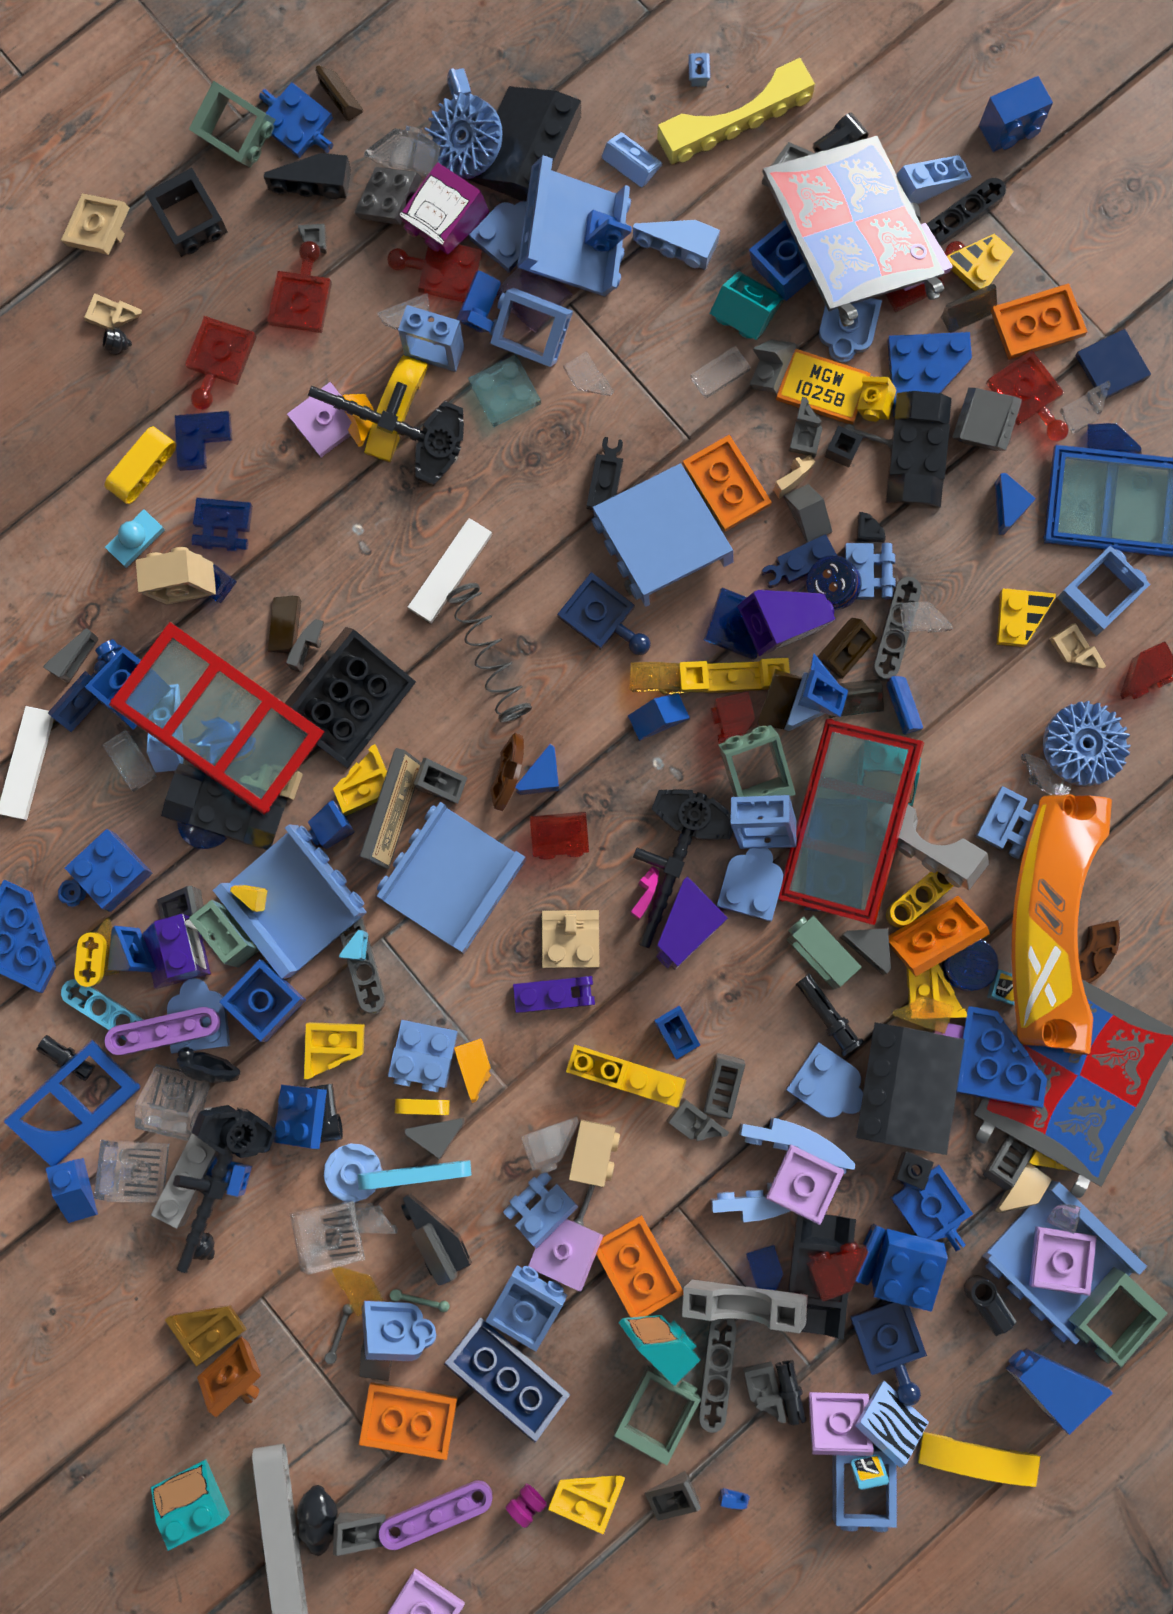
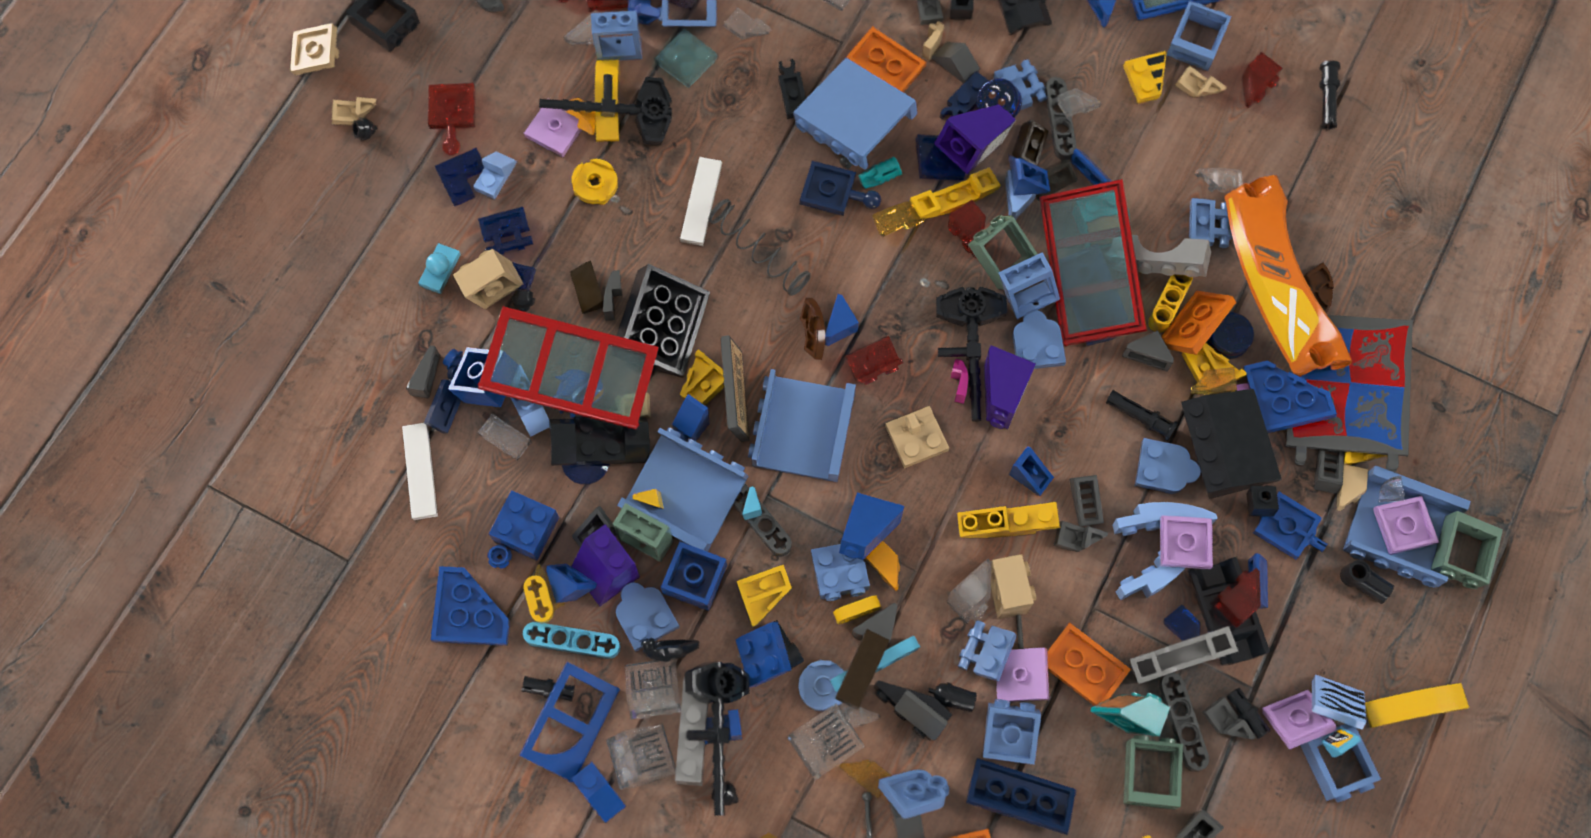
camera: 25 degrees left, 10 degrees down
(140, 465) = (422, 211): yellow beam -> none
(162, 1031) = (622, 631): medium lavender plate -> none
(209, 612) = (523, 300): none -> black plate
(237, 450) = (494, 175): none -> light blue slope
(301, 299) = (500, 47): clear red plate -> none
(341, 518) = (589, 171): none -> yellow plate
(392, 1179) = (862, 669): none -> dark brown tile
(396, 1295) = (943, 761): sand green hinge -> none
(439, 781) = (762, 356): dark grey slope -> none
(470, 1021) = (869, 525): none -> blue slope
(483, 1243) = (954, 696): none -> black piece
(552, 994) = (922, 483): dark purple plate -> none
(658, 715) = (909, 247): blue slope -> none
(661, 616) = (880, 173): none -> teal hinge
(733, 1499) = (1242, 816): blue tile -> none
(779, 699) = (997, 196): dark brown slope -> none
(822, 952) = (1116, 366): sand green window -> none
(869, 529) = (1006, 57): black tile -> none
(889, 1341) = (1305, 640): dark blue plate -> none
(909, 1270) = (1295, 577): blue brick -> none
(1002, 988) = (1263, 344): slope -> none
(1058, 1390) = (1449, 620): blue slope -> none
(1100, 733) = (1239, 145): medium blue wheel -> none

